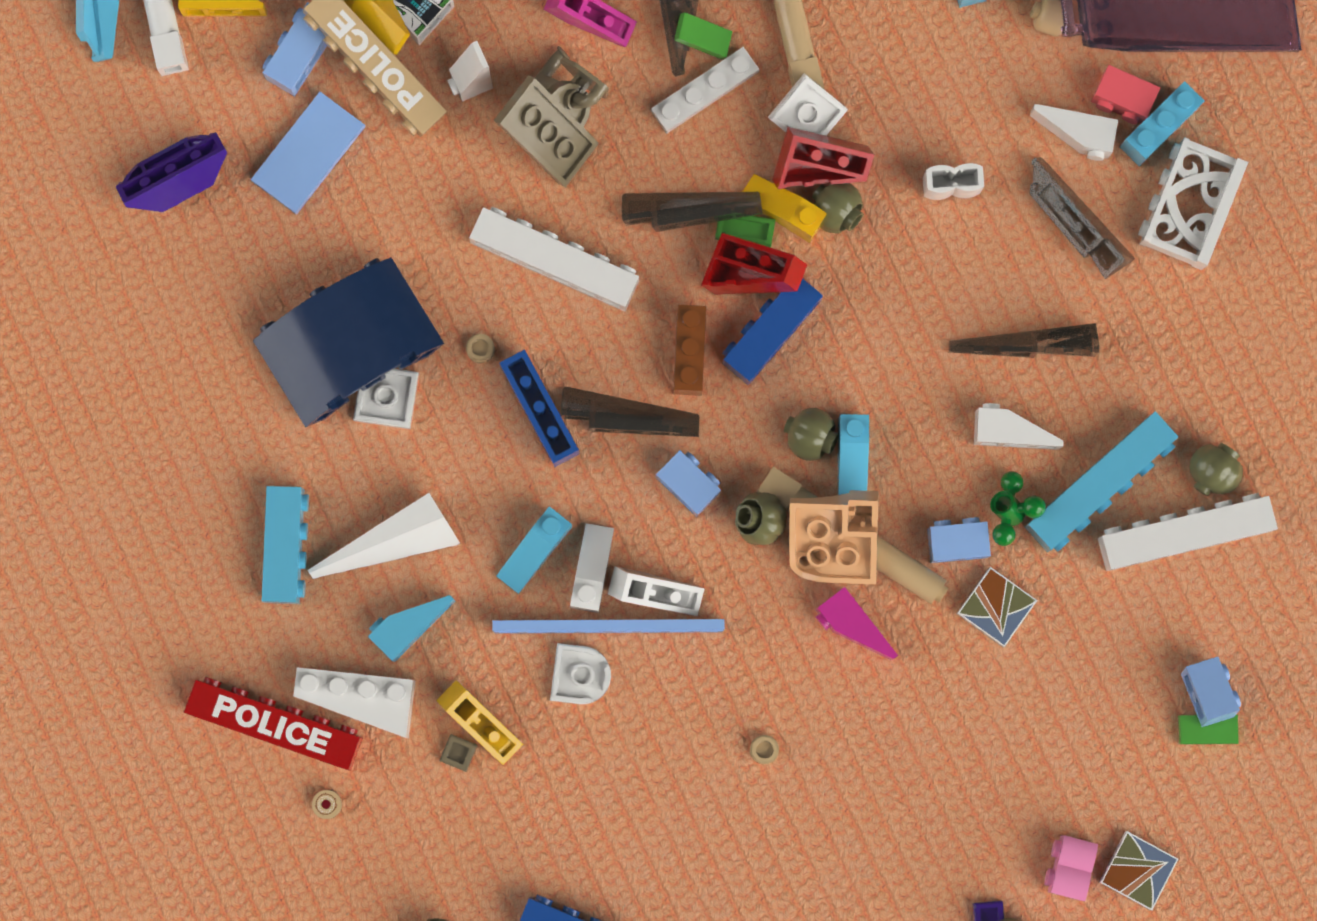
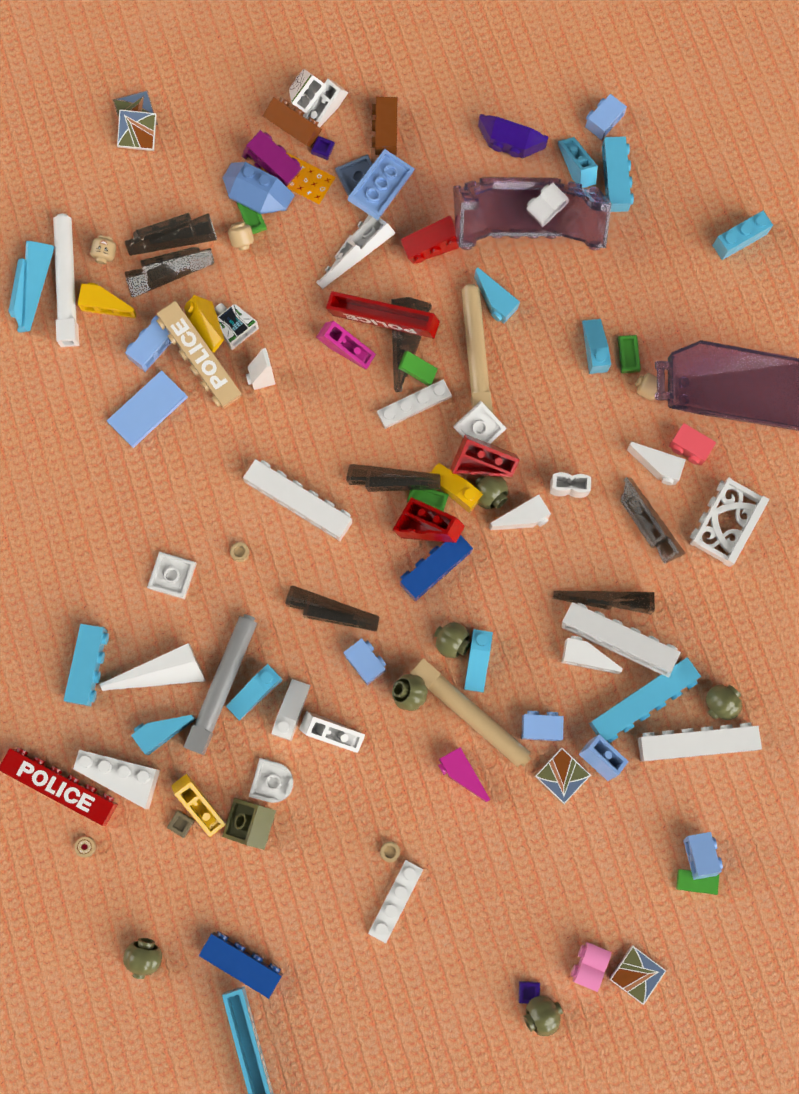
camera: 10 degrees right, 5 degrees down
(173, 174) = (55, 410): dark purple wedge -> none
(346, 339) = (150, 533): dark blue panel -> none
(485, 546) = (201, 731): none -> light grey brick
(539, 408) = (271, 597): blue brick -> none
(550, 117) = (308, 407): dark tan plate -> none
(557, 738) = (249, 823): none -> olive slope
(608, 626) = (295, 751): light blue tile -> none
(689, 350) = (378, 572): dark orange brick -> none
(782, 817) = (395, 901): none -> white plate
(836, 537) = (458, 711): light nougat slope -> none
(893, 236) = (524, 516): none -> white slope
(1011, 510) = (580, 710): green piece -> none
(1052, 573) = (603, 757): none -> light blue brick
(1055, 399) = (621, 639): none -> white brick
(1161, 123) = (714, 466): medium azure brick -> none

